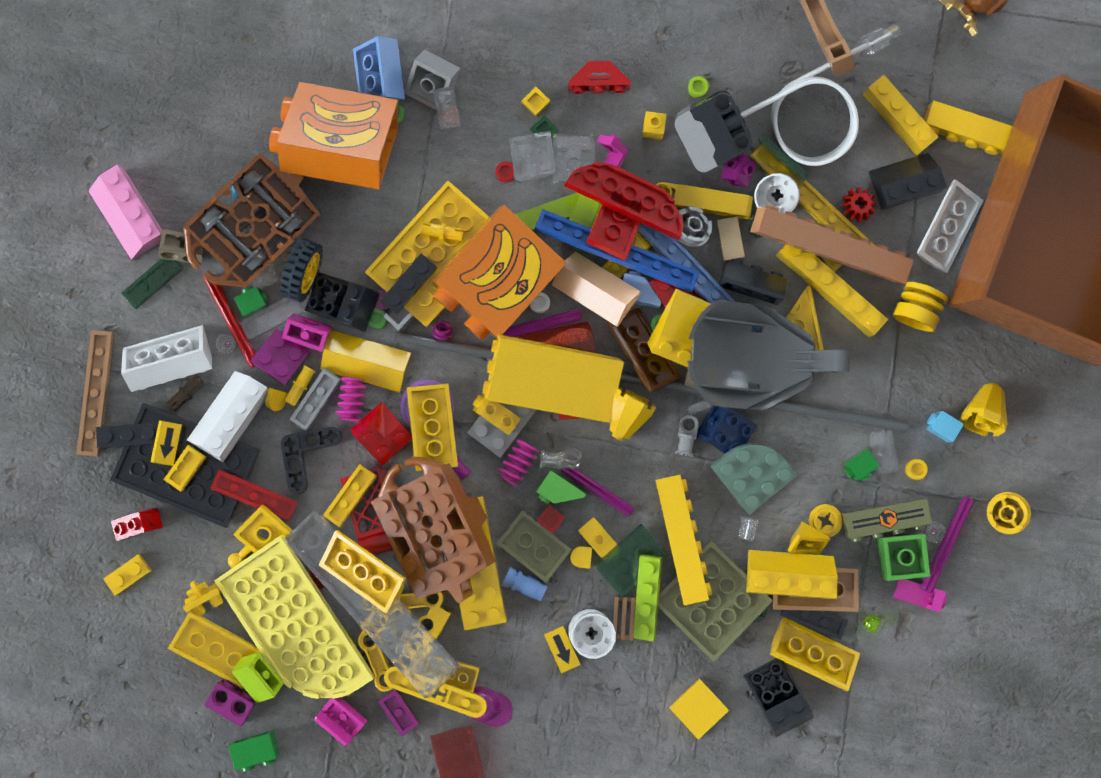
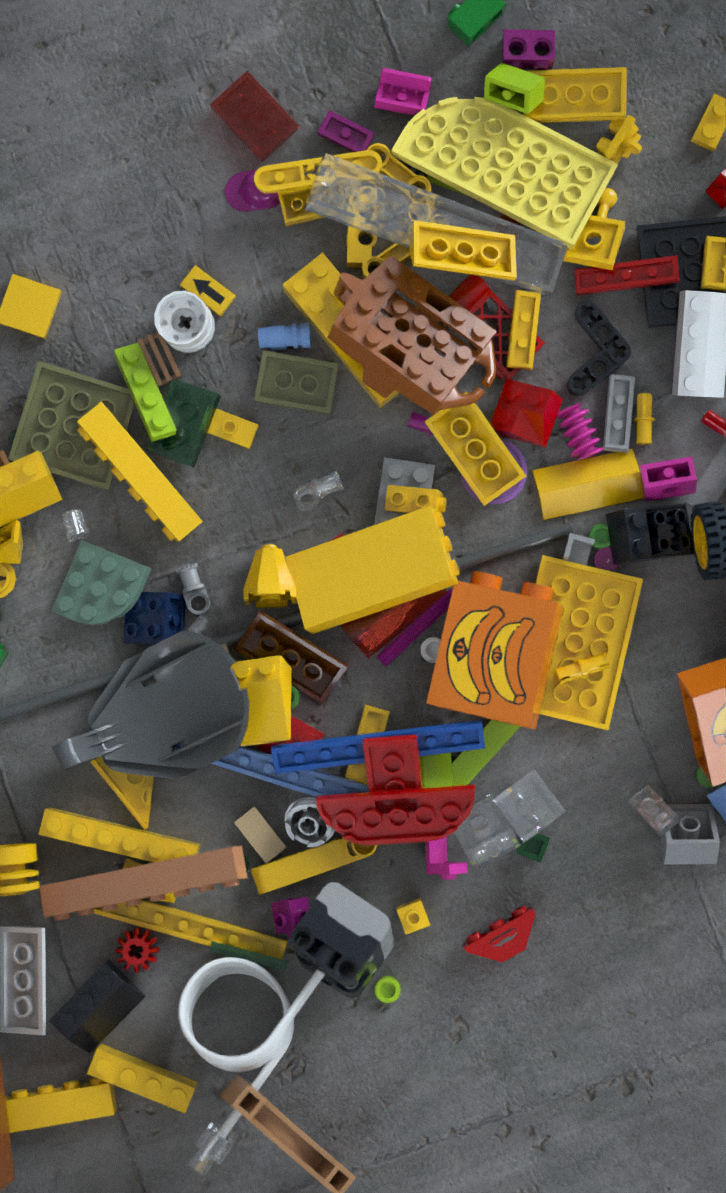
camera: 150 degrees right, 0 degrees up
(275, 399) = (661, 390): yellow tile -> none
(280, 357) = (682, 436): magenta plate -> none
(408, 284) = (587, 591): black plate -> none
(442, 330) = (522, 566): magenta plate -> none
(505, 172) = (551, 774): red tile -> none
(518, 462) = (361, 461): dark pink piece -> none
(536, 101) = (560, 874): yellow tile -> none
(550, 519) = (294, 421): red plate -> none
(558, 490) = (301, 454): bright green slope -> none
(581, 557) = (239, 399): yellow tile -> none
(596, 288) = (379, 696): light nougat slope -> none
(598, 490) = (257, 479): magenta axle -> none
(647, 296) = (332, 720): light blue slope -> none
(753, 282) = (210, 799): black slope -> none
(770, 184) = (244, 899): white wheel -> none

